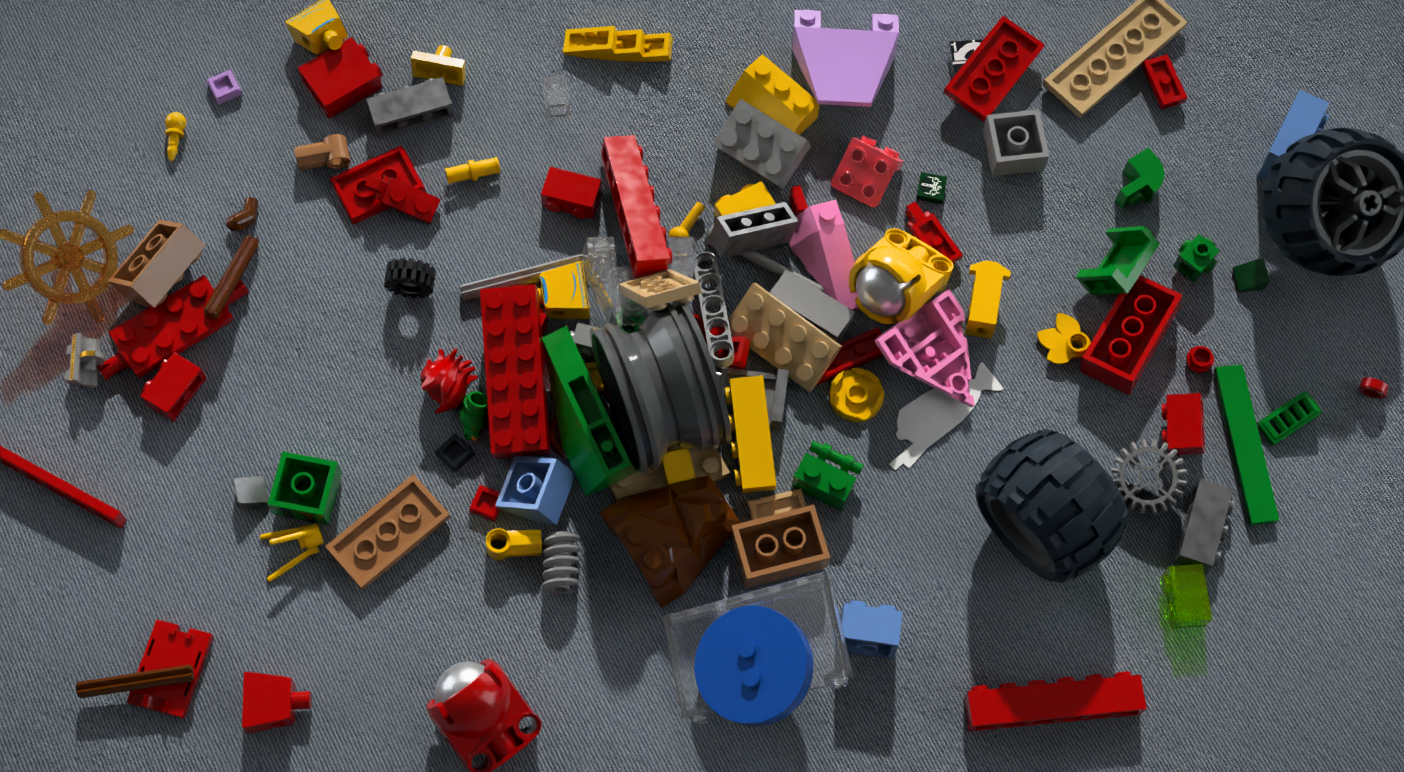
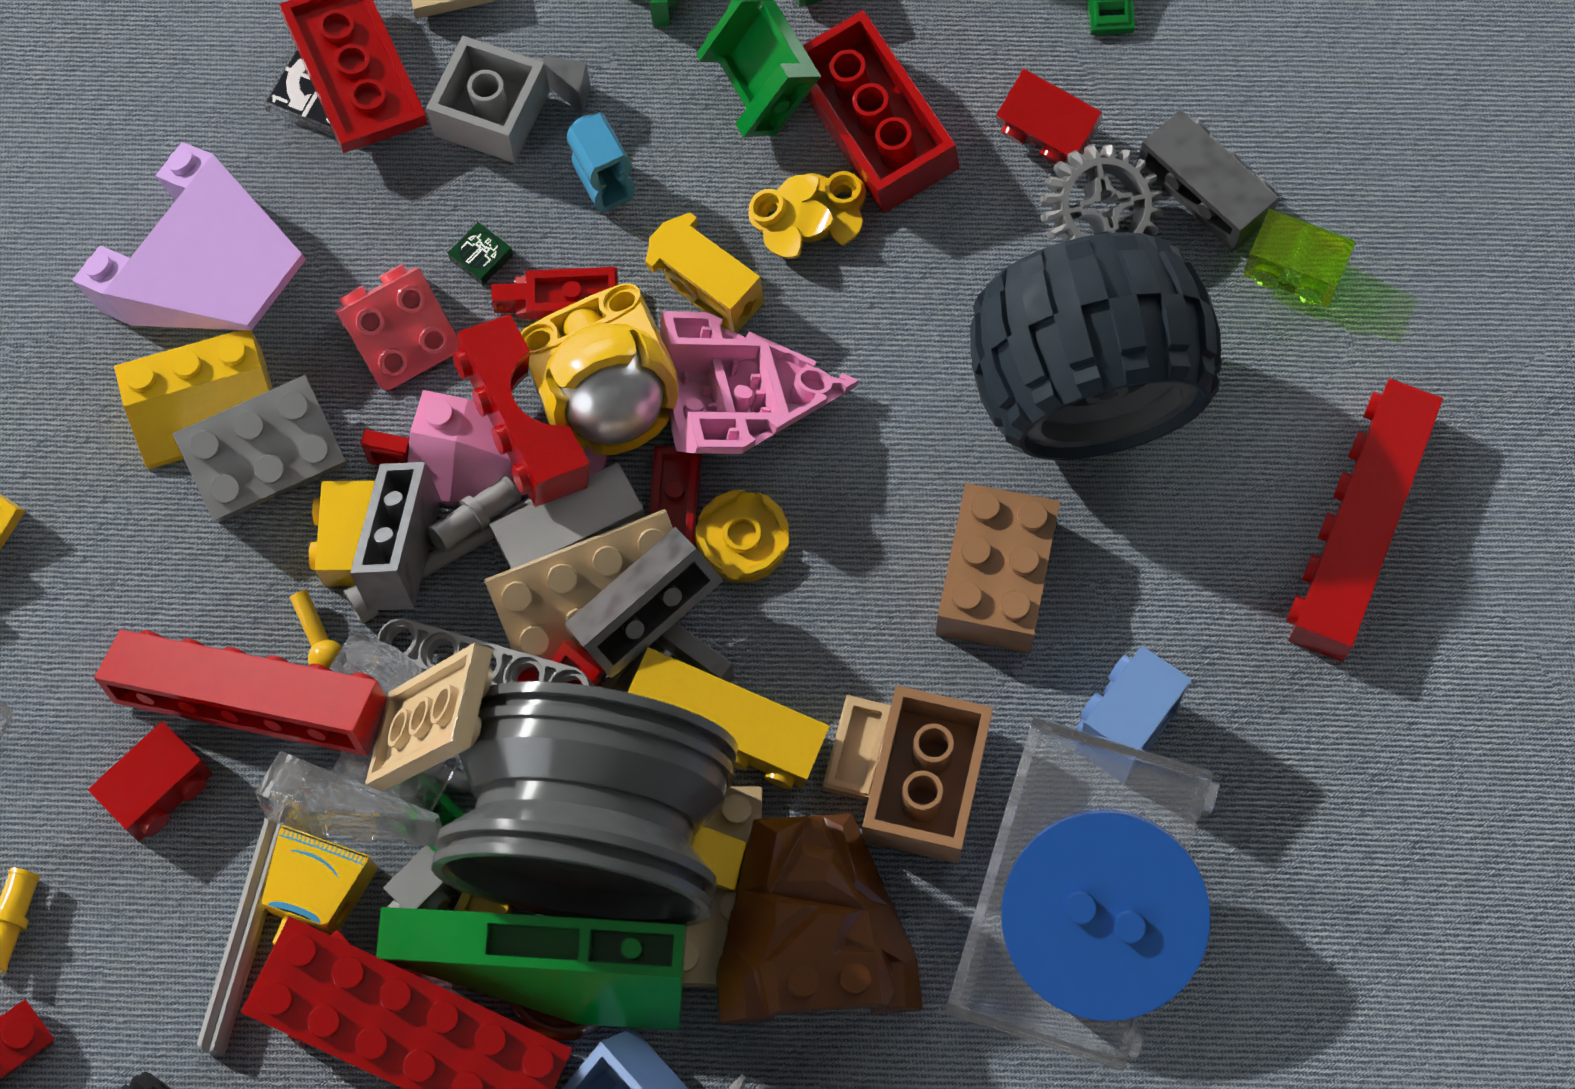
camera: 55 degrees left, 0 degrees up
(785, 361) = (643, 602): none -> flat silver brick
(788, 260) = (474, 514): none -> light grey pin
(825, 481) = (857, 653): green brick -> none
(834, 273) = (543, 456): none -> red arch
(911, 526) = (997, 568): none -> medium nougat brick
(935, 415) = (837, 446): white sticker -> none
(1013, 214) = (600, 162): none -> dark azure brick
(1047, 326) = (796, 215): none -> yellow plate
(1054, 176) = (568, 80): none -> flat silver slope
(1200, 359) = (958, 49): red plate -> none
(1246, 445) = (1115, 63): green tile -> none

